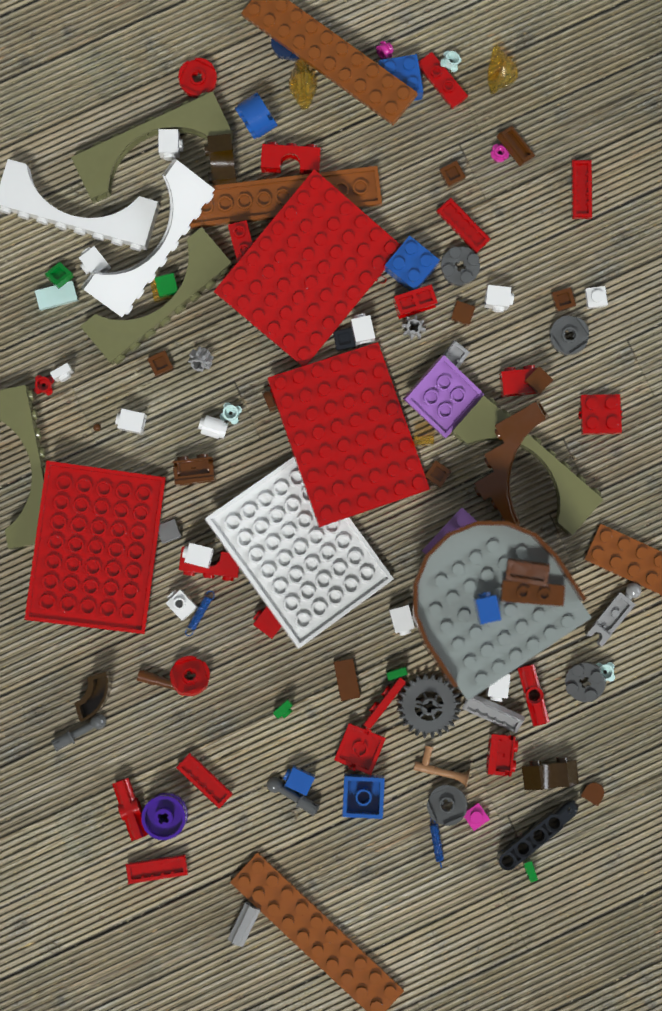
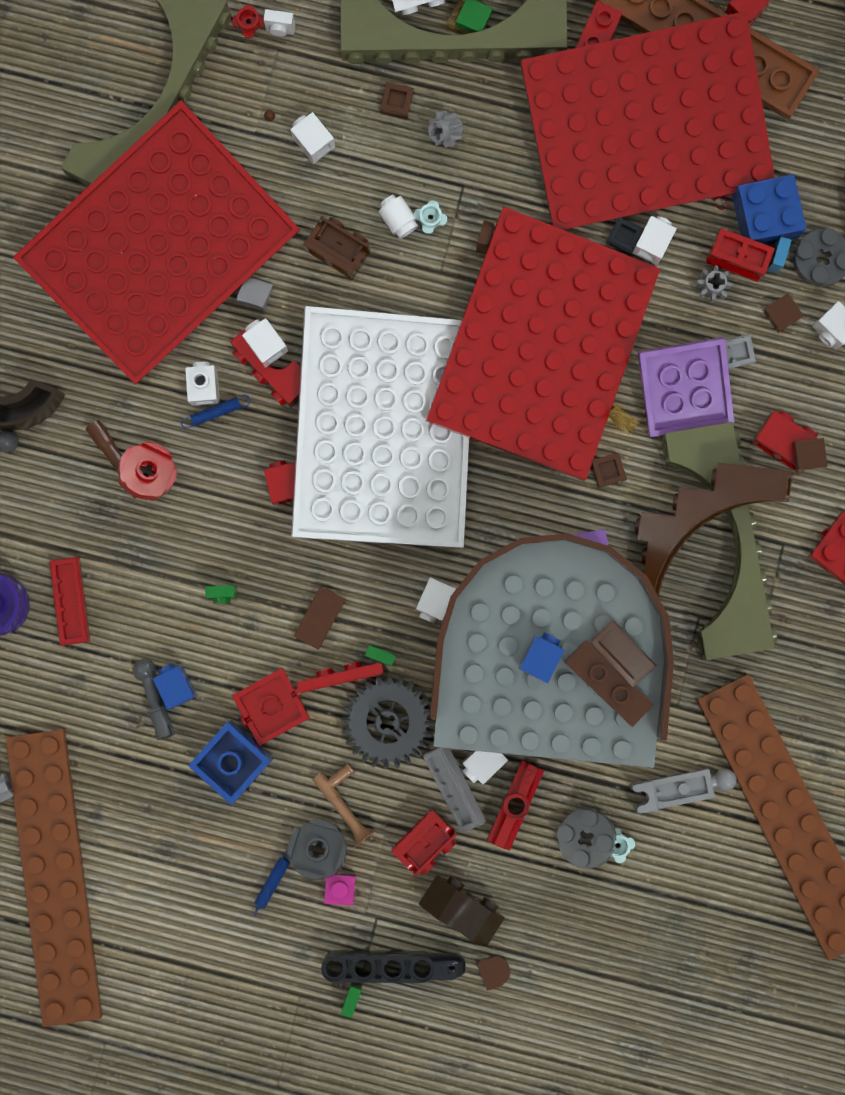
camera: 40 degrees right, 0 degrees up
(436, 283) = (779, 255): none -> dark azure tile

